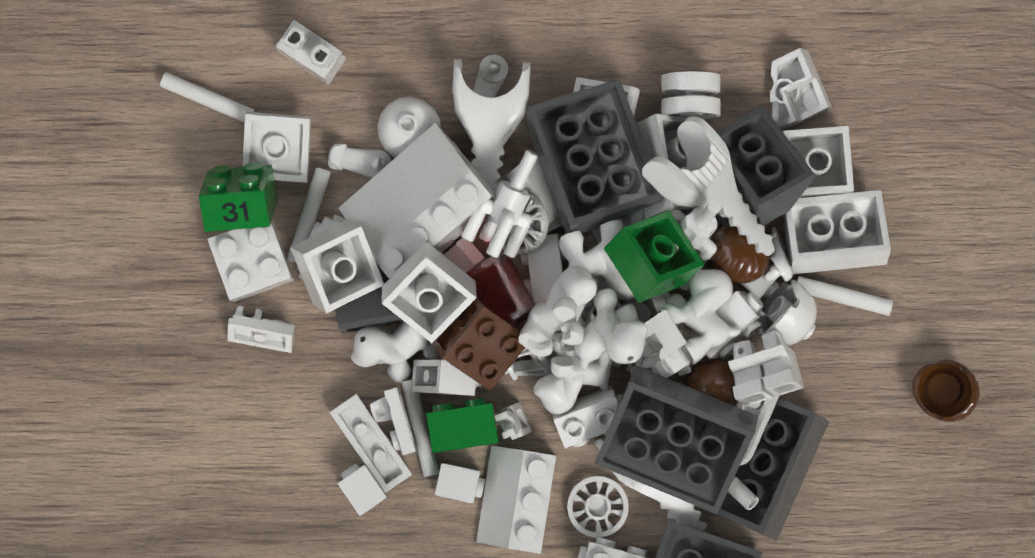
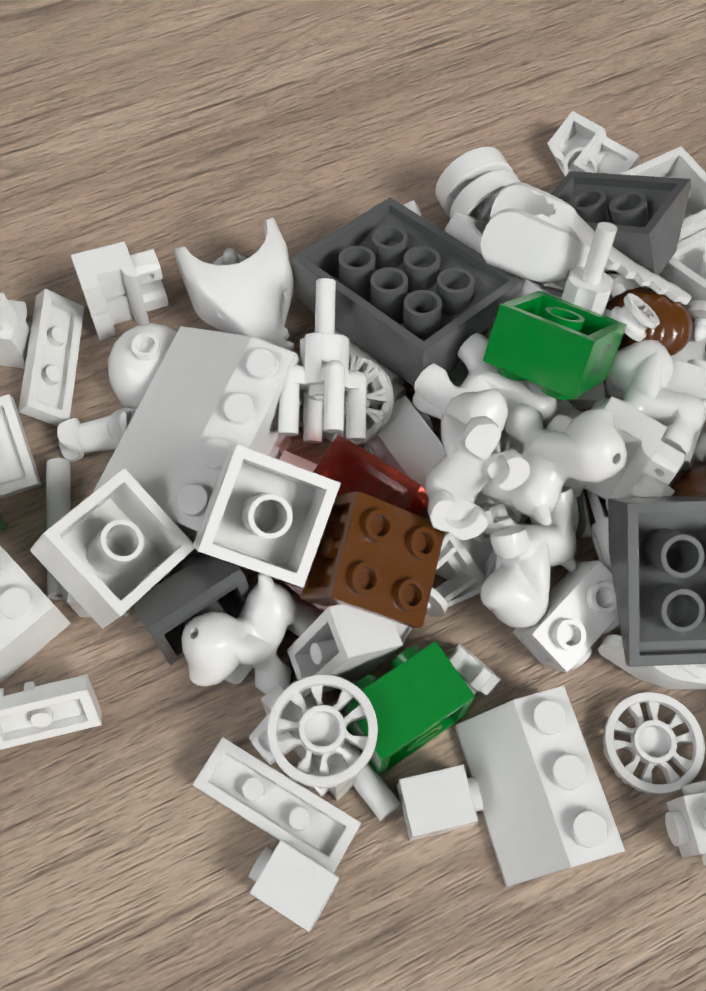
camera: 25 degrees left, 20 degrees down
(346, 90) = (51, 358): none -> white plate
(407, 424) = (322, 731): none -> white wheel
(409, 60) = (119, 285): none -> white hips
(719, 262) = (636, 315): none -> white bush

